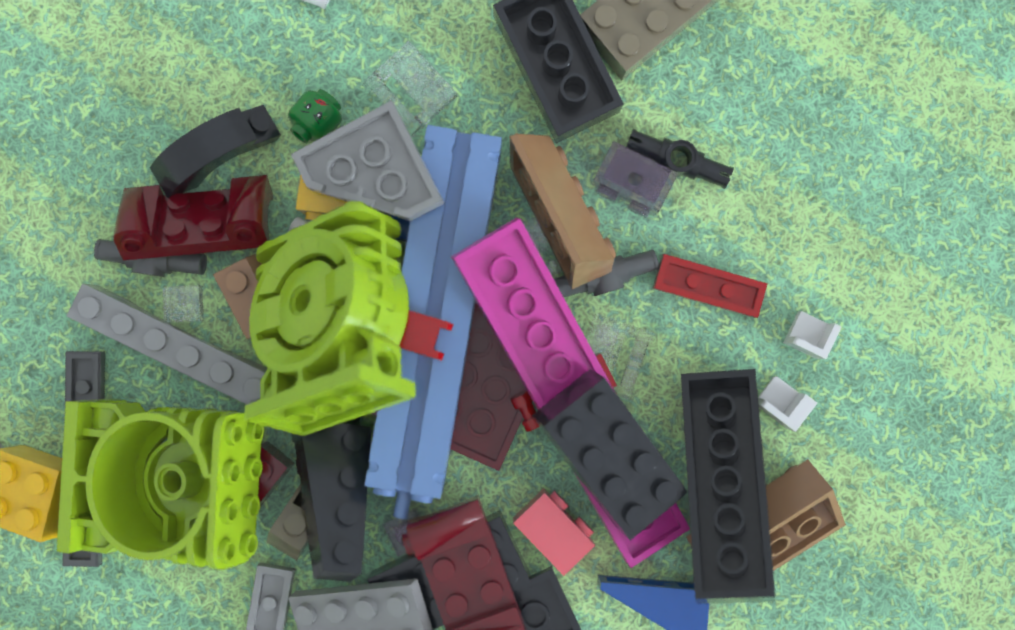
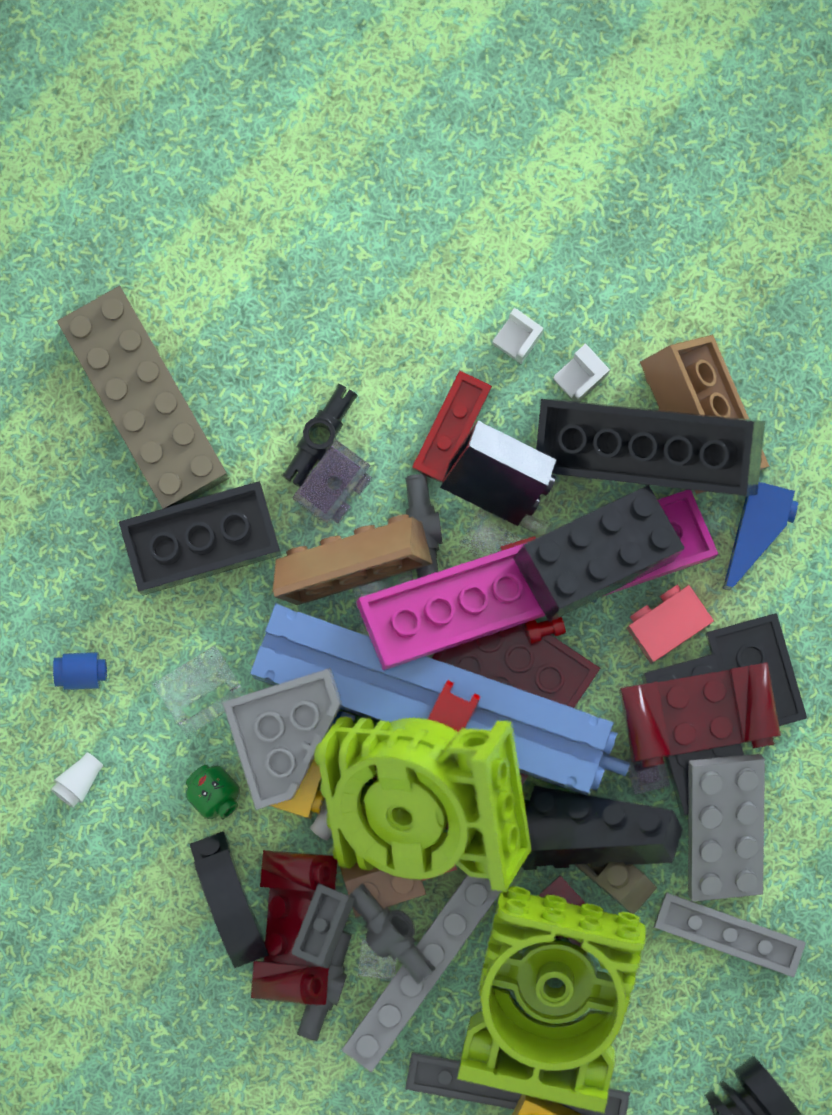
camera: 80 degrees left, 5 degrees down
(190, 242) = (323, 926): none -> dark grey plate
(198, 311) = (391, 934): none -> dark grey pin
(673, 340) = (499, 474): none -> black brick

